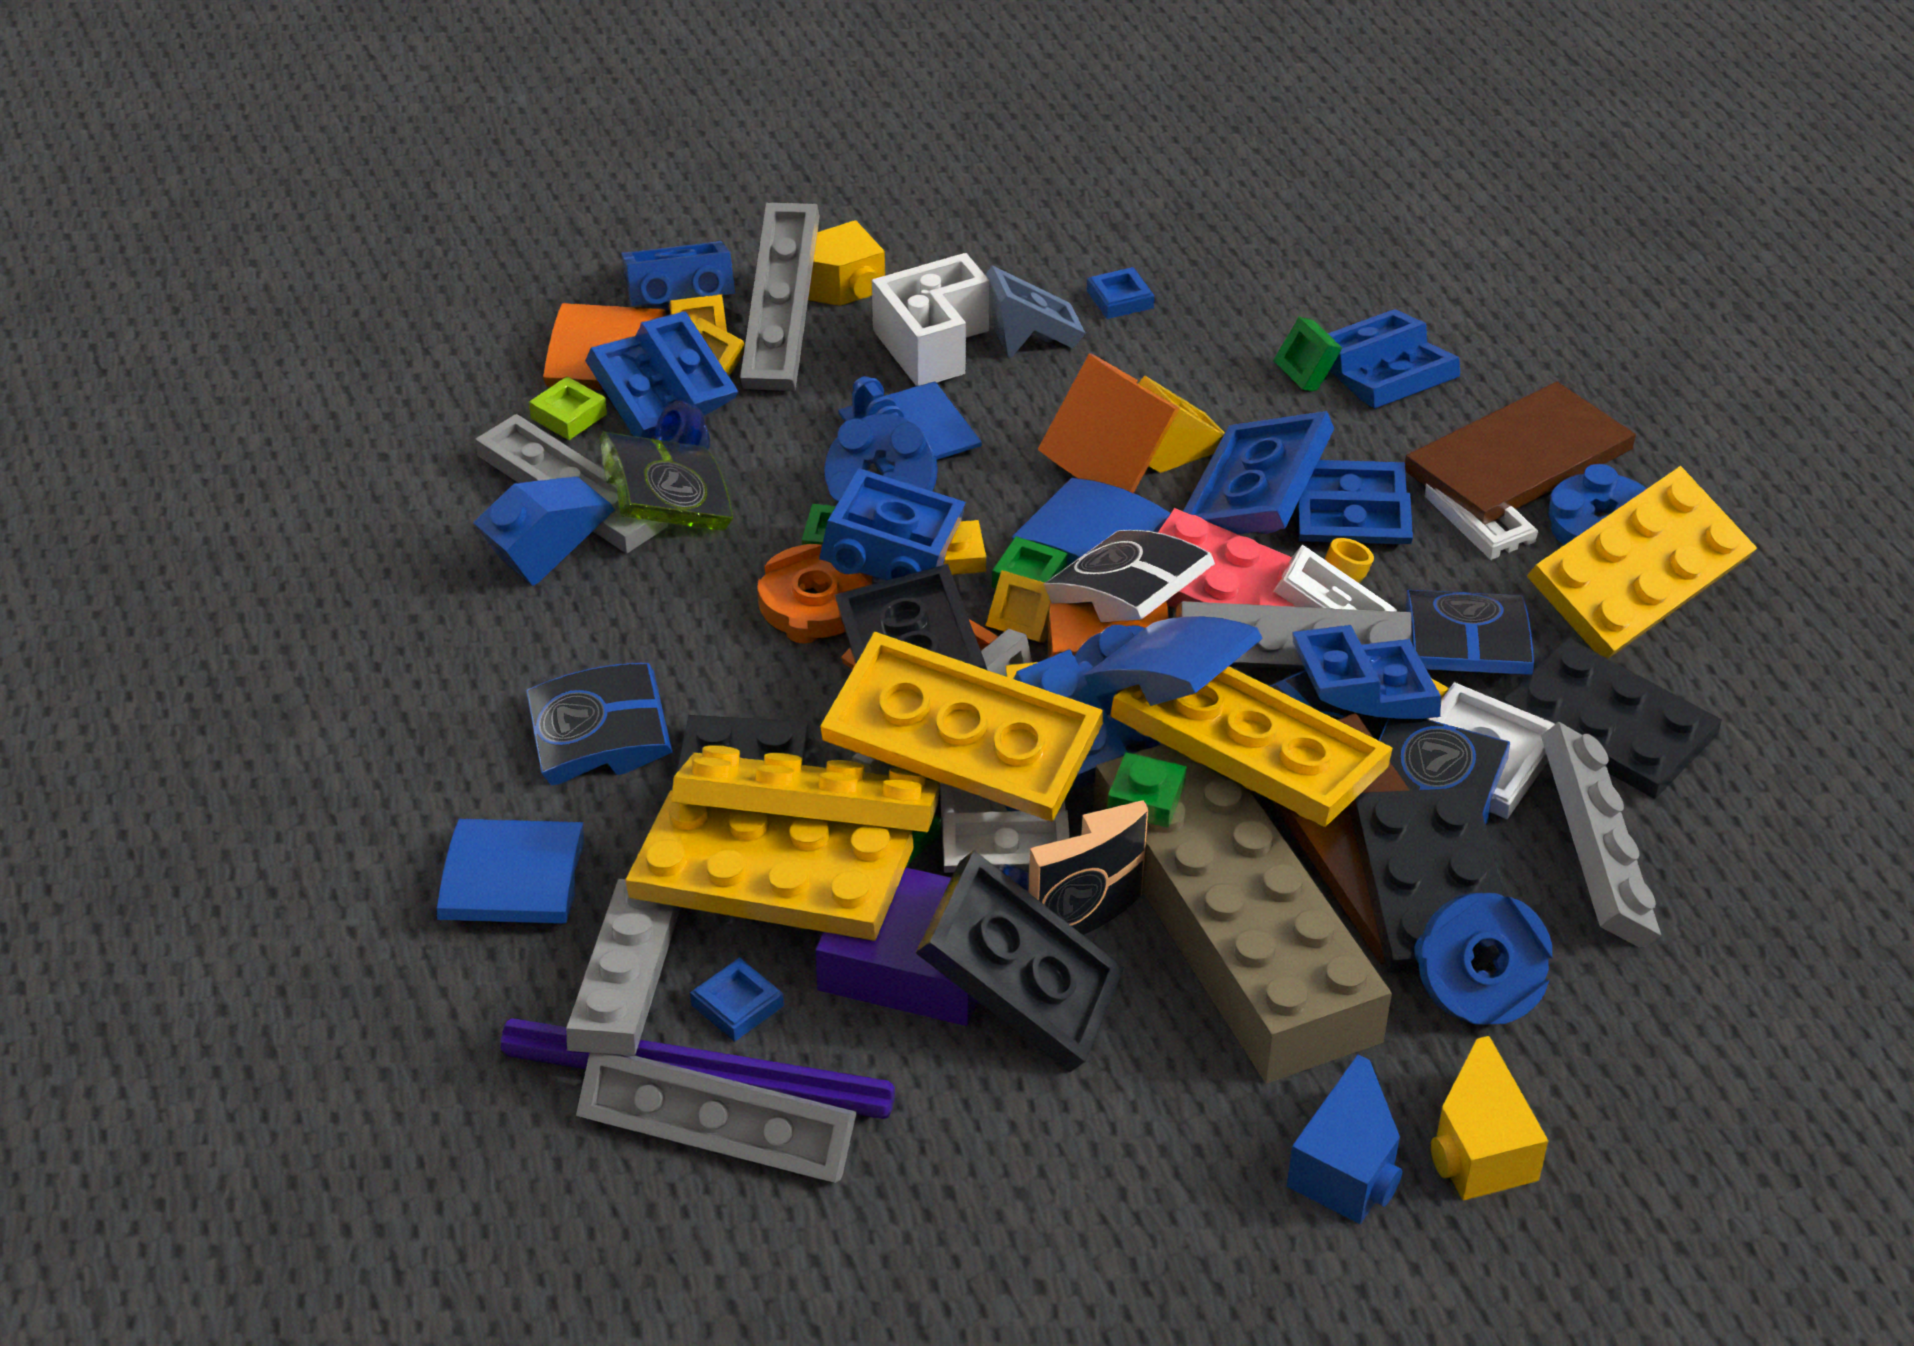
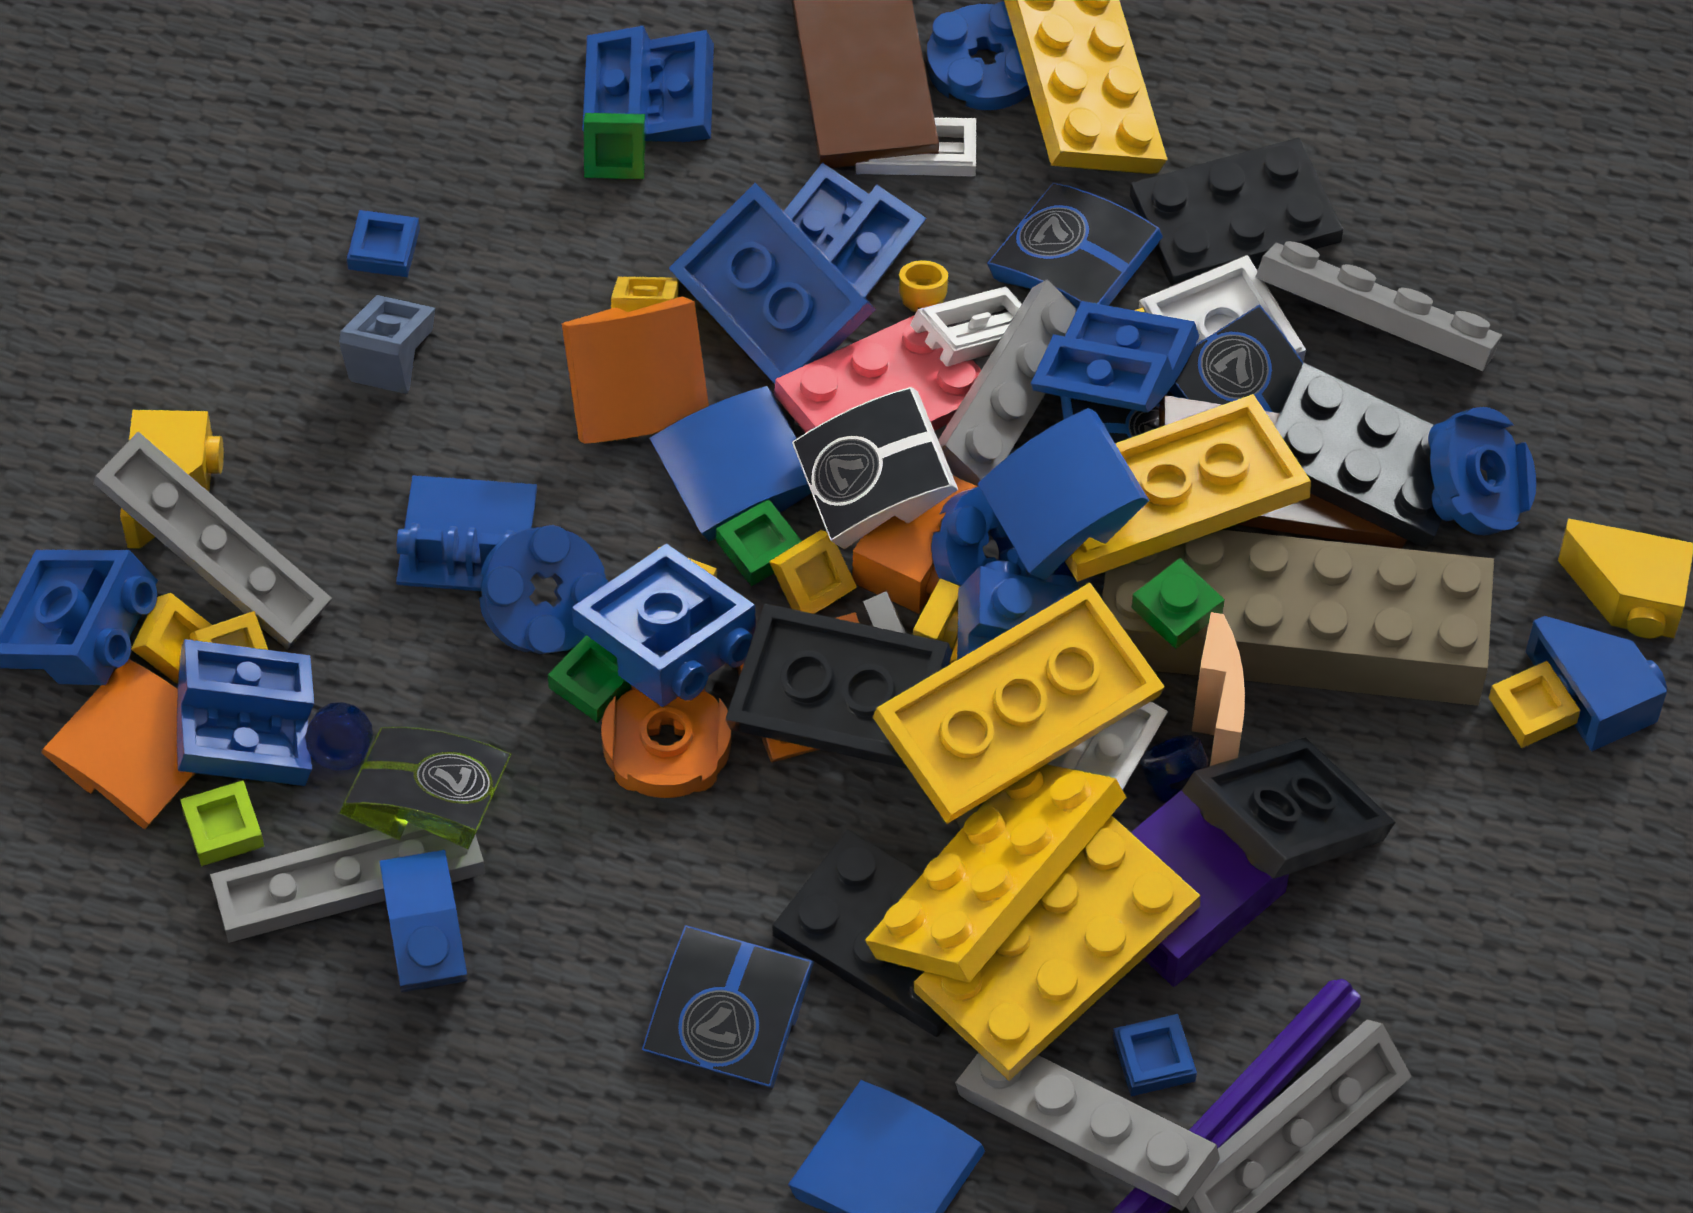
camera: 60 degrees left, 15 degrees up
(929, 314) = (334, 438): white brick -> none
(1283, 1108) = (1534, 704): none -> yellow plate

